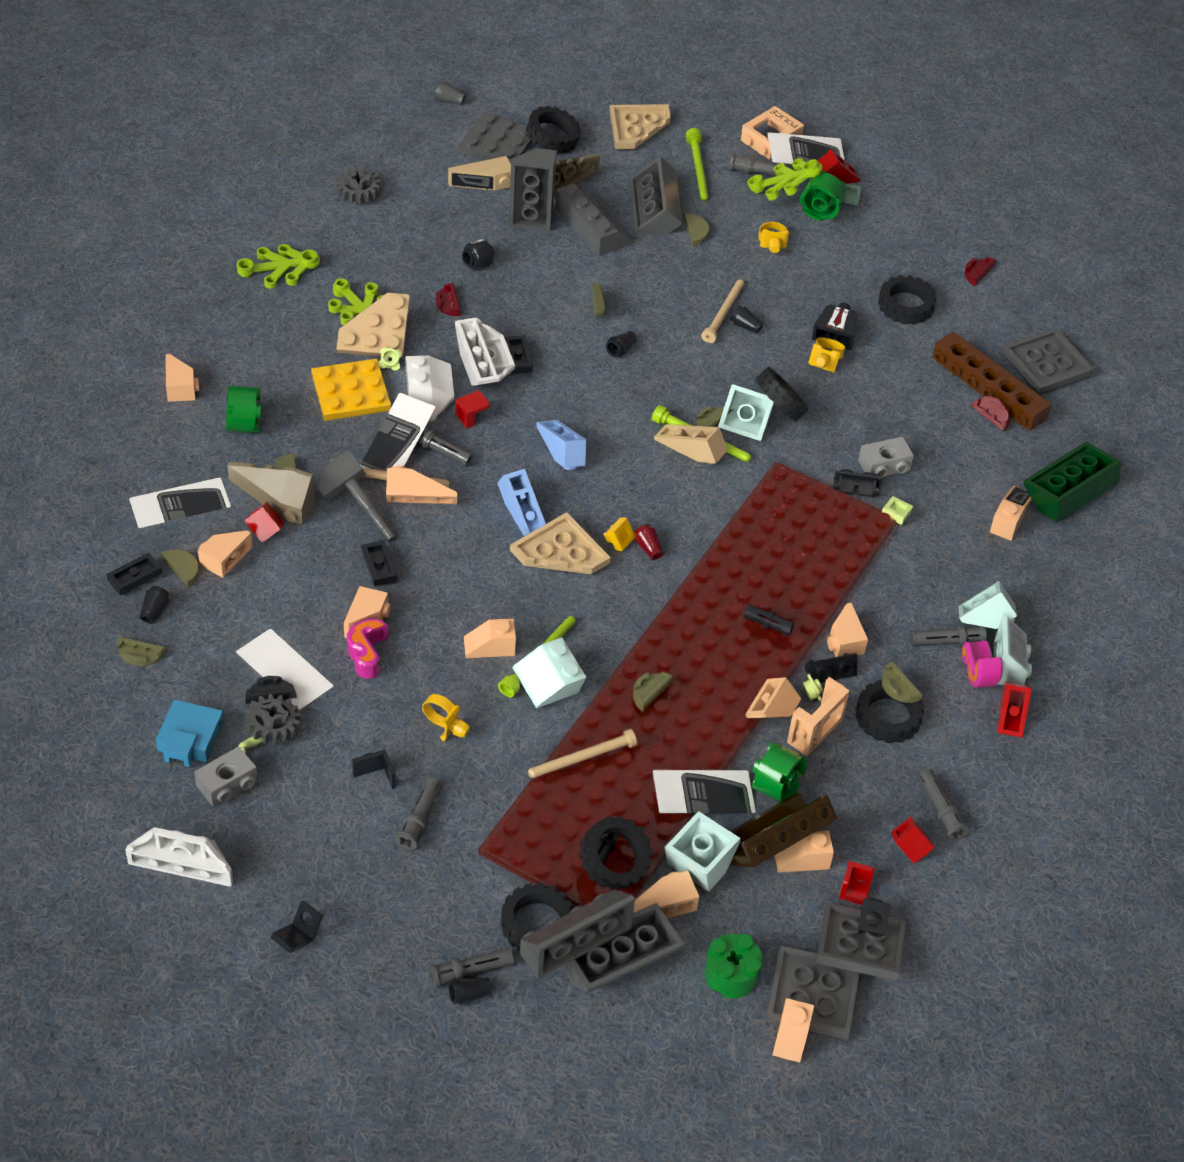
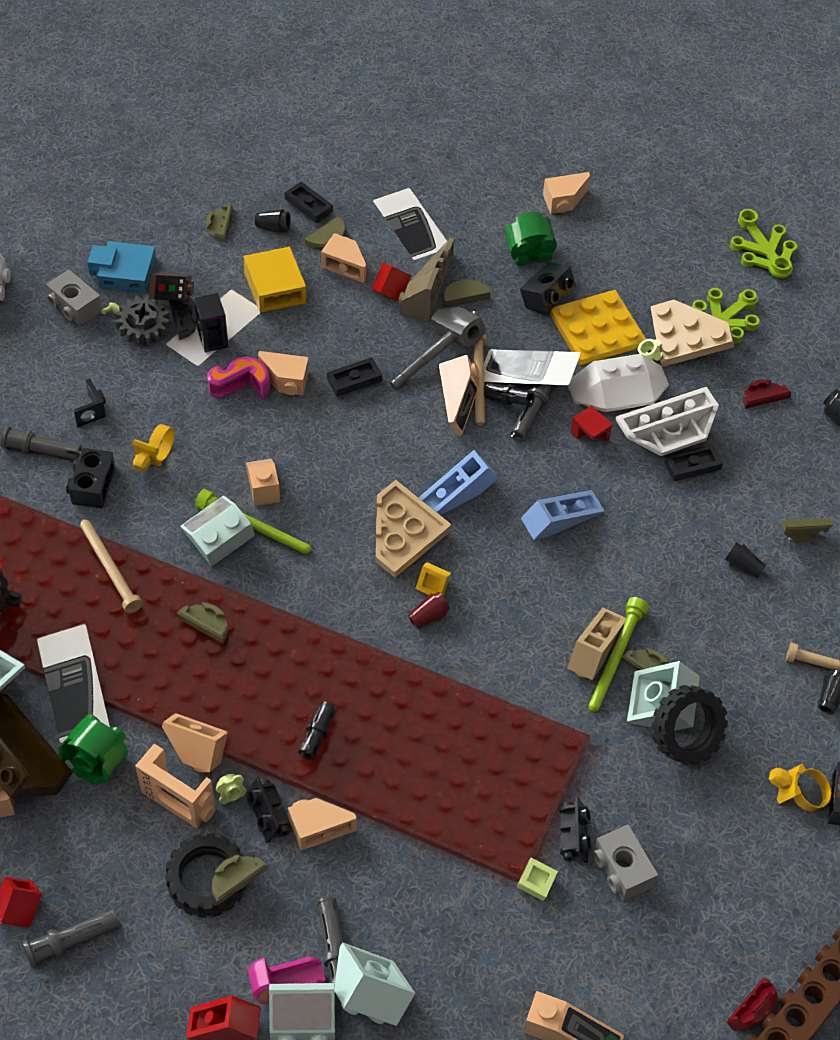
camera: 85 degrees right, 5 degrees up
(236, 689) = (171, 286): none -> slope
(239, 608) = (275, 279): none -> yellow brick
(299, 654) = (211, 322): none -> black brick
(309, 418) = (548, 287): none -> black brick
(427, 453) = (521, 396): none -> black pin
(464, 770) = (91, 478): none -> black brick

